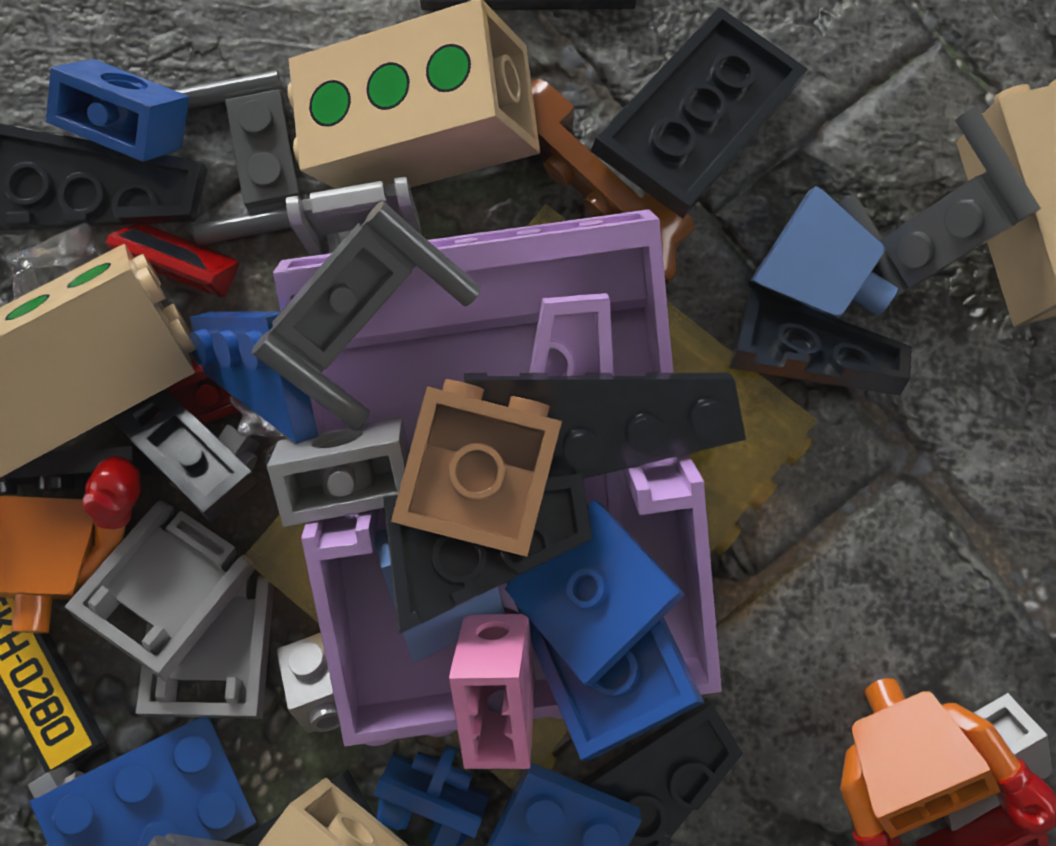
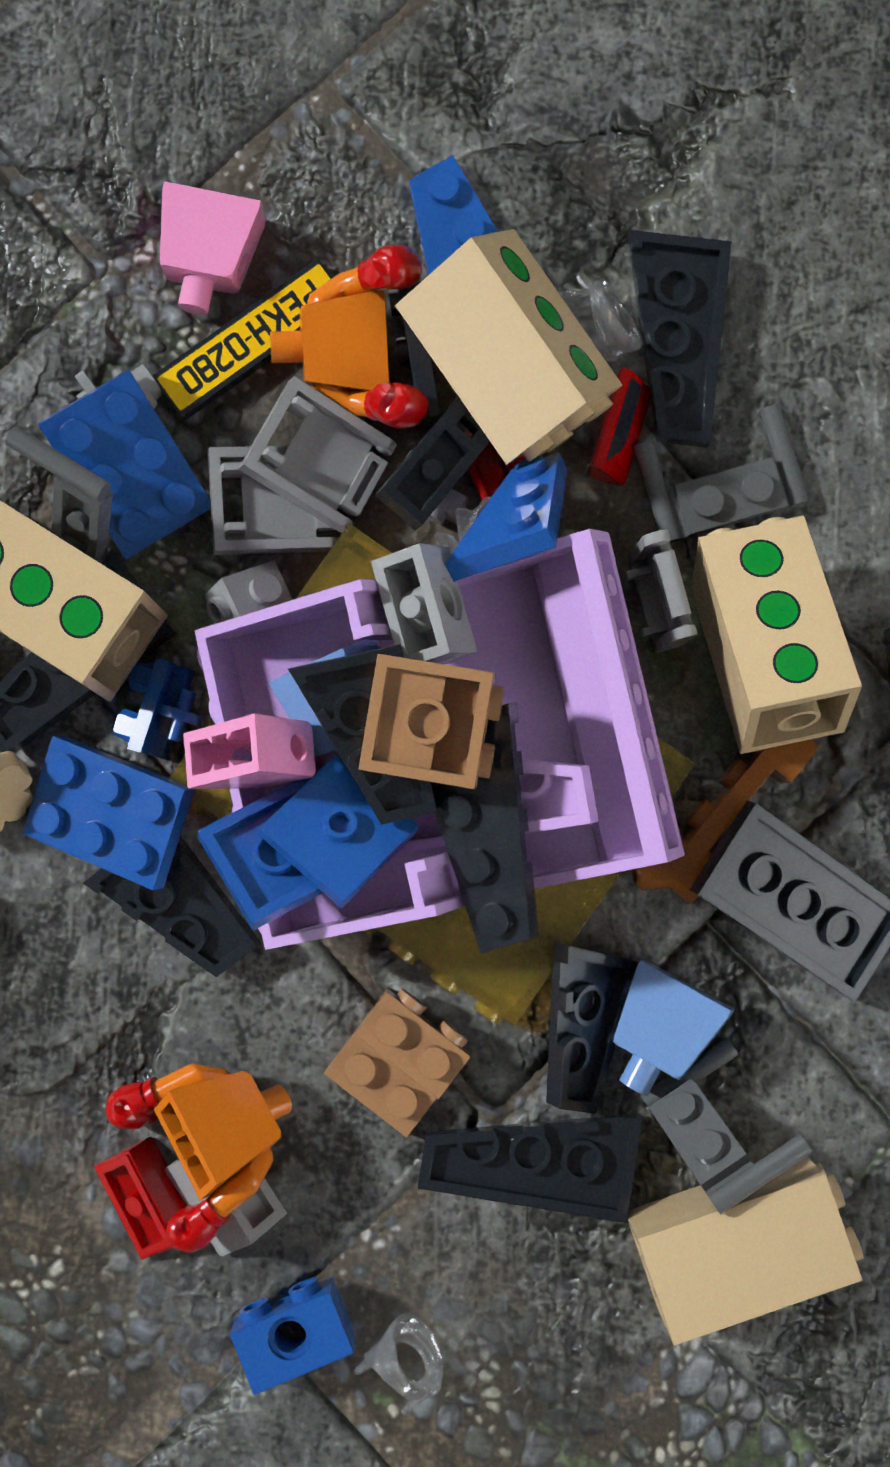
camera: 80 degrees right, 5 degrees up
(116, 109) = (750, 360): blue brick -> none
(345, 297) = (570, 594): dark grey plate -> none
(844, 553) = (399, 1060): none -> medium nougat plate
(965, 409) = (545, 1165): none -> black wing

